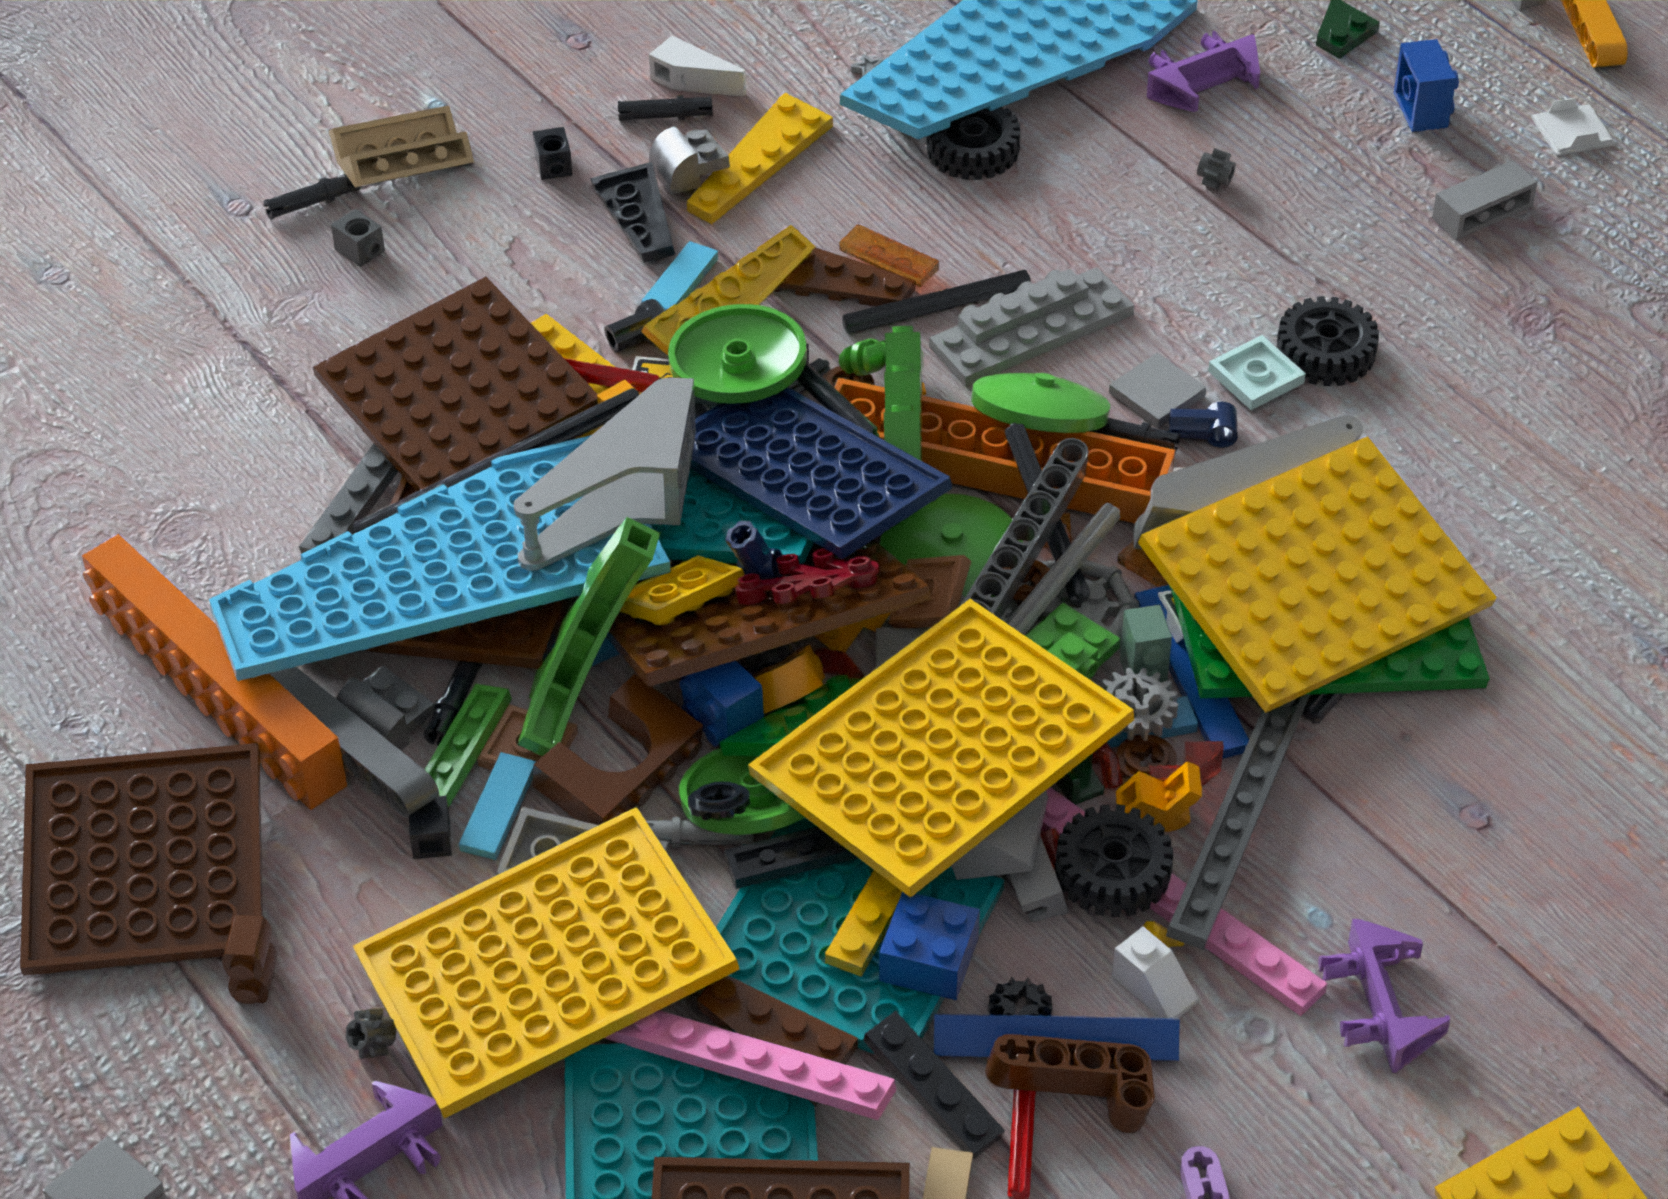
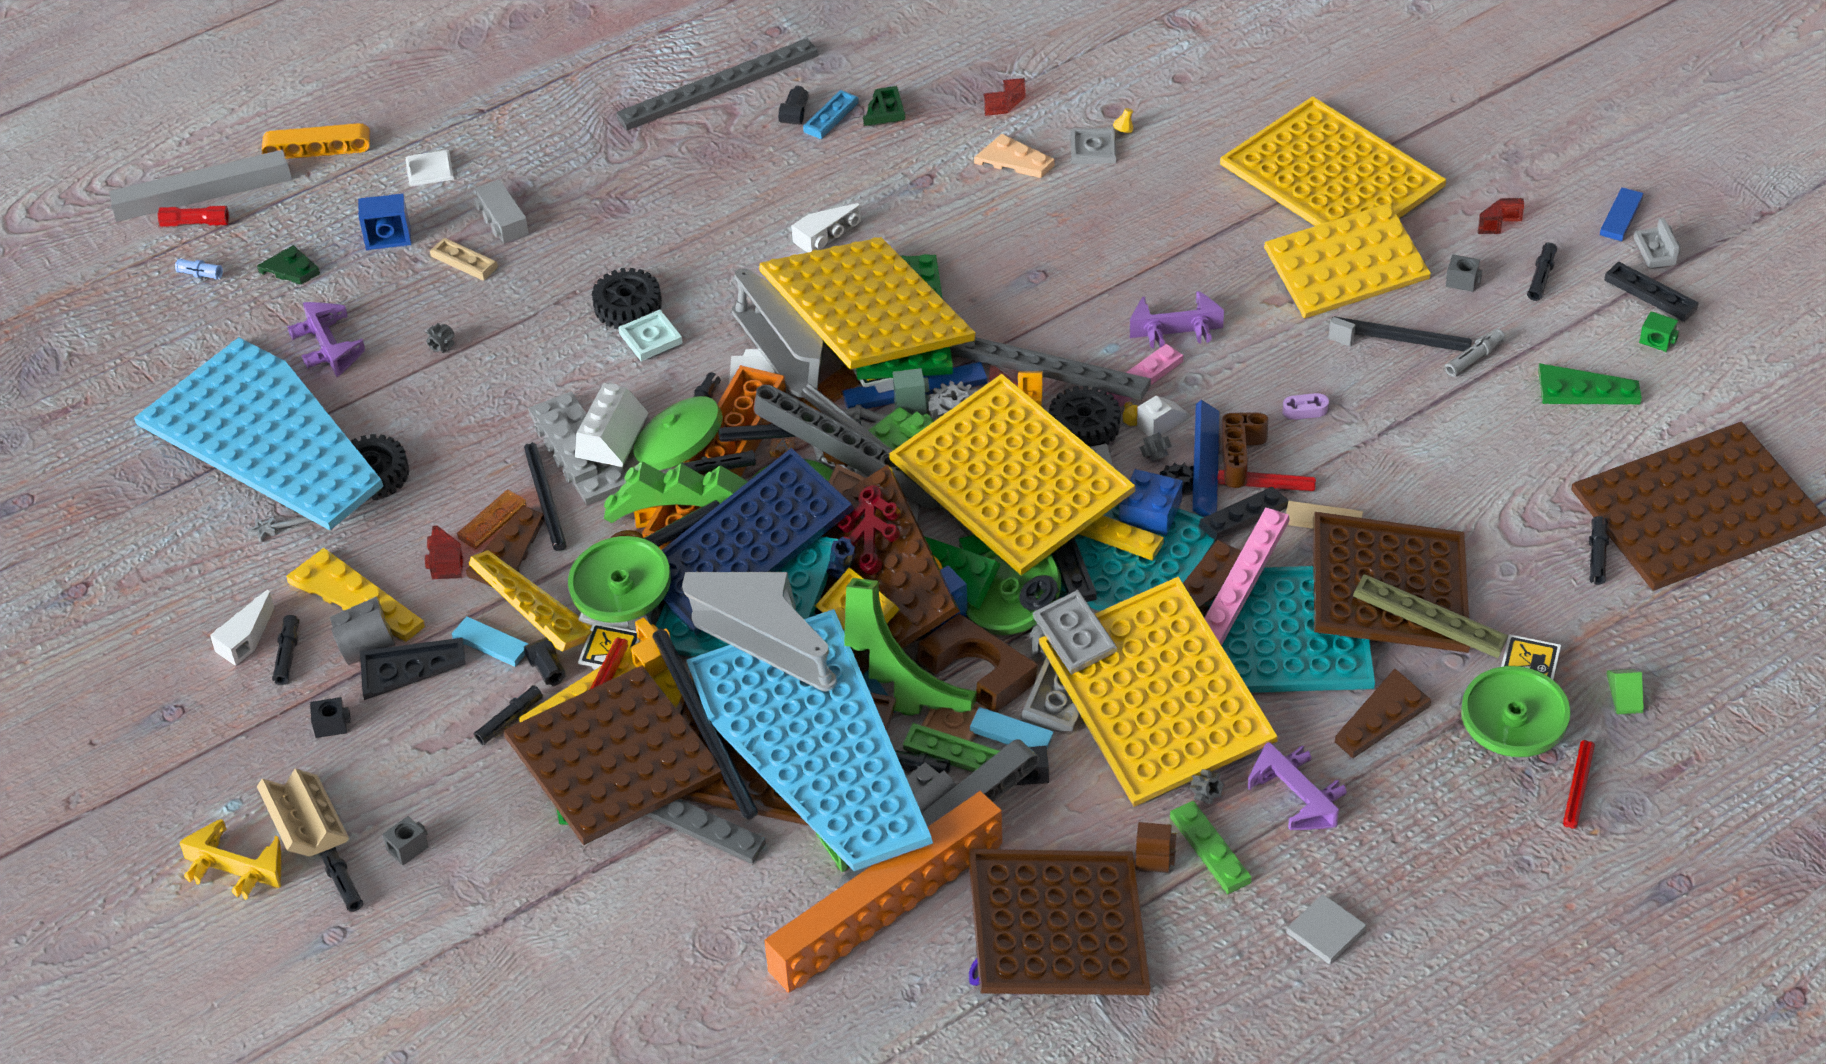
camera: 85 degrees left, 0 degrees up
(270, 1047) = (1210, 847): none -> bright green plate
(346, 106) = (203, 850): none -> yellow hose
(562, 310) = (516, 708): none -> black pin
(639, 842) = (1074, 632): none -> light grey tile
(824, 216) = (445, 555): none -> clear red slope
(863, 357) = (611, 523): bright green arm -> none
(948, 406) = (728, 461): none -> black pin
(1049, 335) = (610, 426): none -> white slope
(1075, 965) = (1155, 446): none -> dark grey gear
(1156, 388) = (656, 386): light grey tile -> none
(1215, 424) = (697, 361): dark blue piece -> none
(1388, 180) = (464, 259): none -> tan tile
(1522, 539) = (823, 227): none -> white slope

